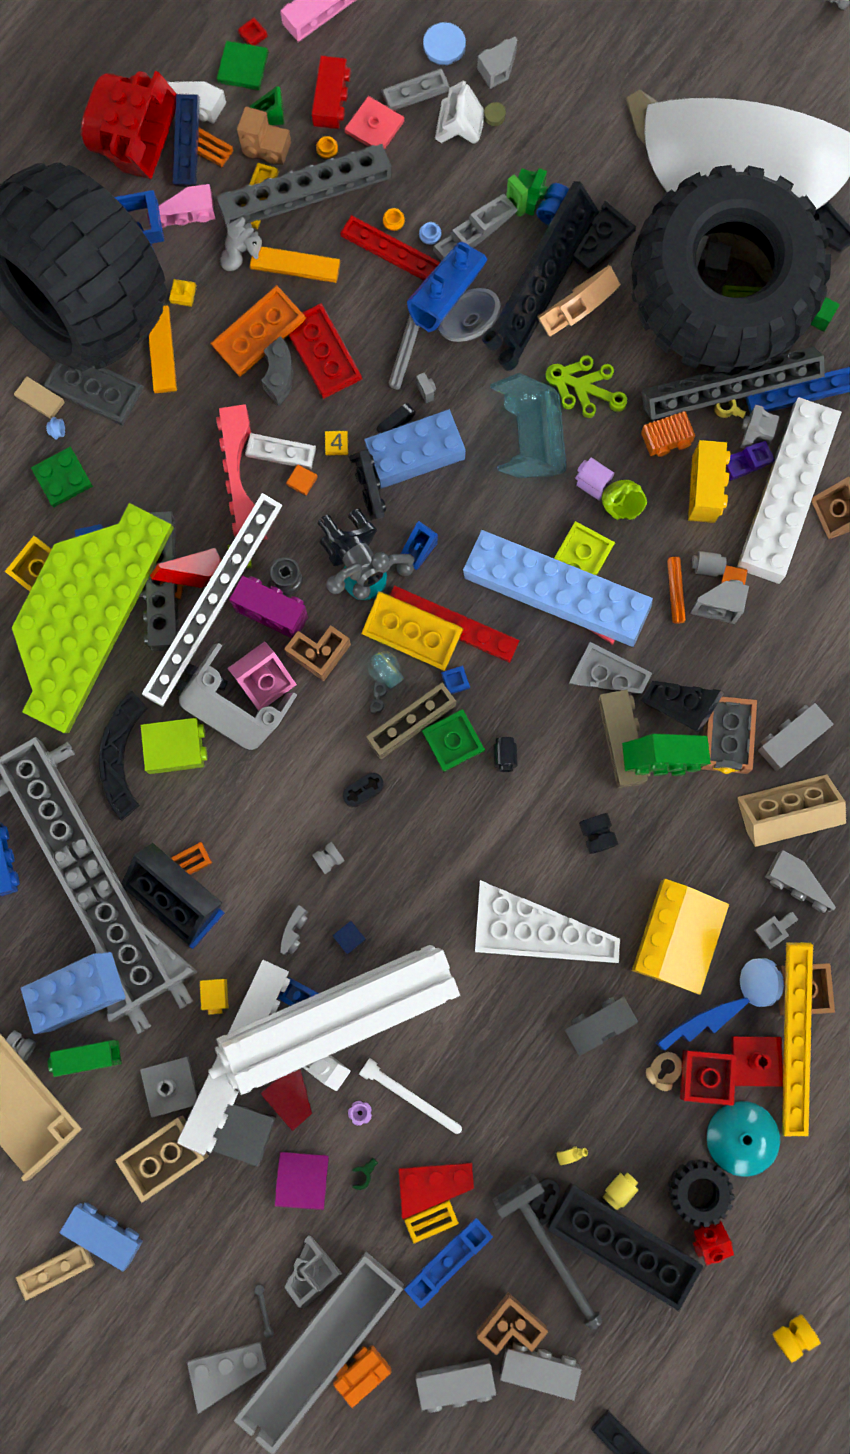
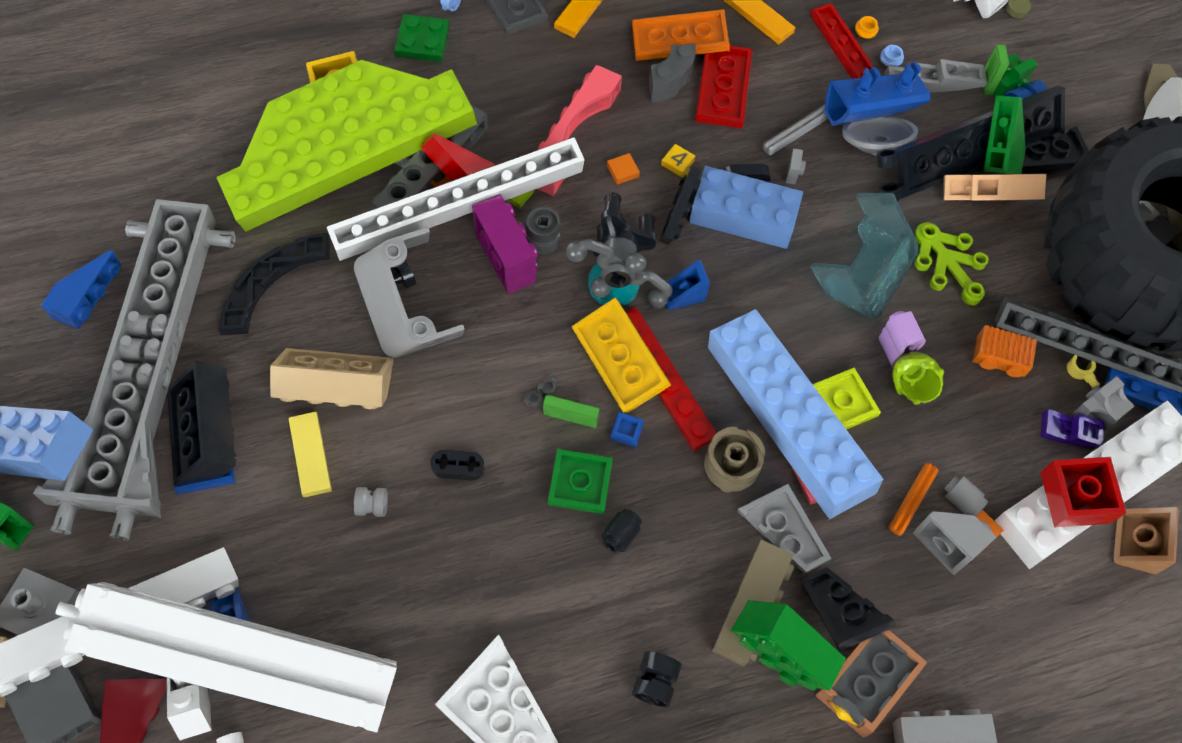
camera: 30 degrees right, 15 degrees down
(173, 745) = (320, 301): lime brick -> none
(203, 854) = (250, 423): orange tile -> none
(214, 995) = (152, 550): yellow brick -> none
(228, 793) = (331, 378): none -> tan slope
(258, 856) = (310, 454): none -> light yellow tile
(262, 676) = (450, 298): bright pink slope -> none
(280, 451) = (623, 135): white tile -> none
(290, 938) = (270, 549): light grey slope -> none
(318, 657) = (516, 316): medium nougat brick -> none
(349, 937) = (326, 594): dark blue tile -> none
(385, 668) = (567, 369): clear light blue piece -> none
(408, 696) = (571, 411): none -> bright green tile
(411, 721) = (553, 431): dark tan brick -> none
(537, 639) = (721, 458): none -> dark tan brick
(565, 258) = (1006, 137): none -> green slope
(708, 481) = (1019, 417): yellow brick -> none
(784, 513) = (1082, 492): none -> red brick

